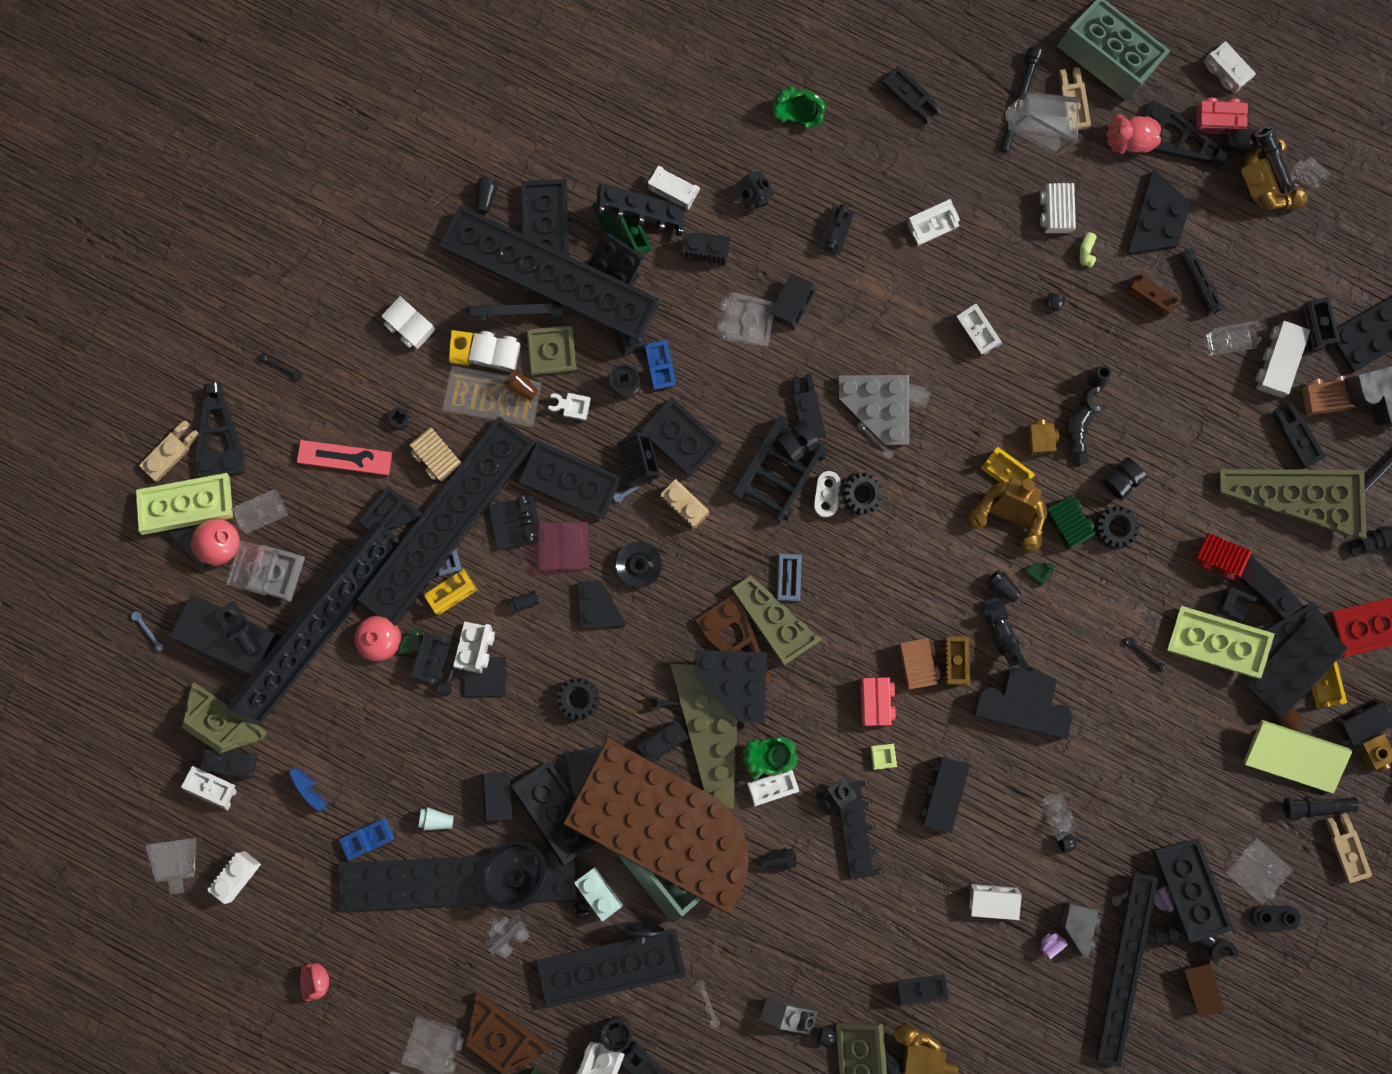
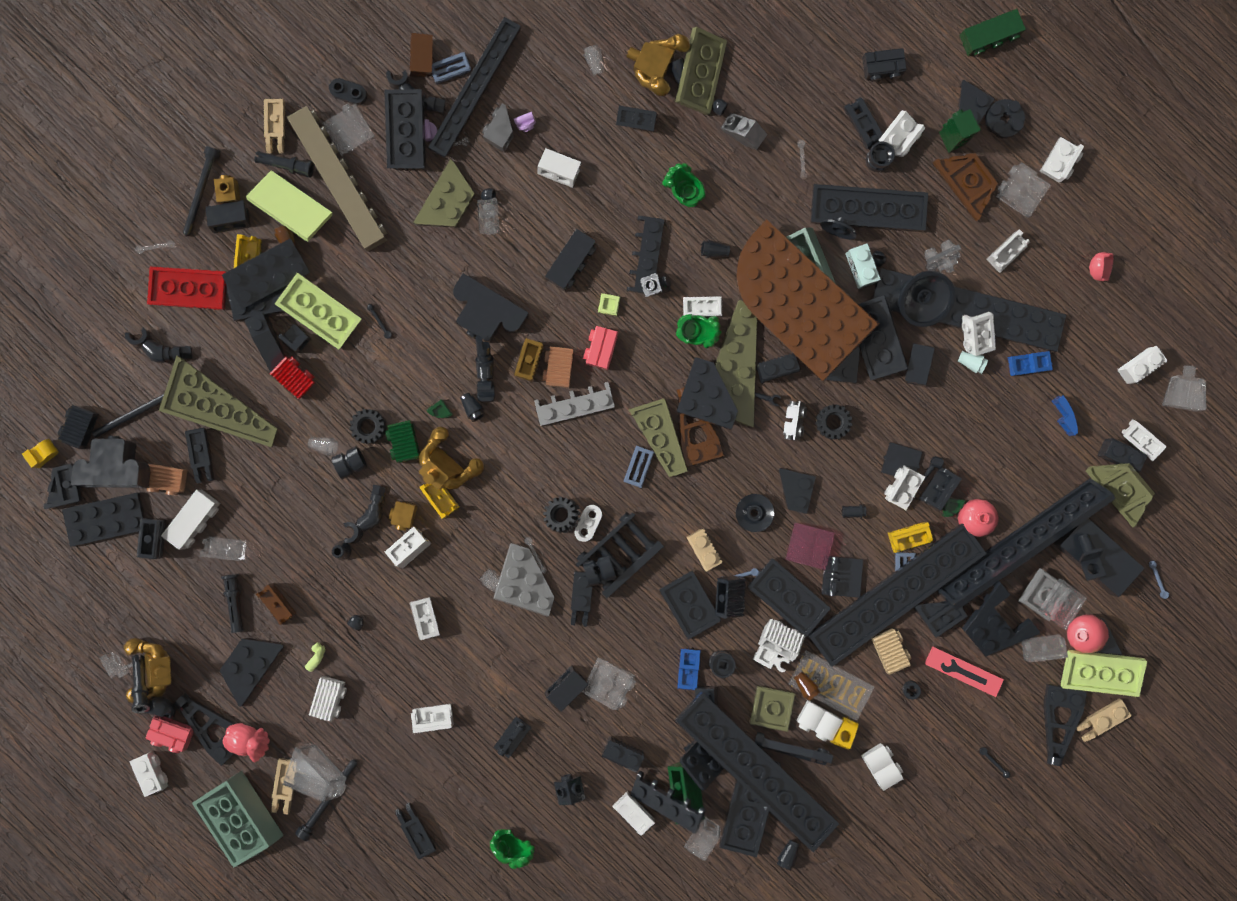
camera: 170 degrees left, 5 degrees up
(327, 512) = (990, 630): none -> black wing
(430, 966) = (1008, 251): none -> white hinge
(438, 854) = (978, 333): none -> white bracket
(565, 429) = (781, 639): none -> white brick
(586, 180) = (704, 840): none -> clear torso
(623, 696) = (796, 413): none -> hinge
(839, 925) = (684, 185): none -> green hair
(885, 624) = (575, 406): none -> light grey hinge
(995, 1048) = (594, 59): none -> clear cone
(1025, 402) = (407, 547): none -> white hinge
(1114, 822) = (447, 200): none -> olive wing
(1158, 490) = (326, 446): none -> clear cone
(1179, 971) = (467, 69): none -> sand blue tile
(1253, 807) = (337, 179): none -> dark tan brick

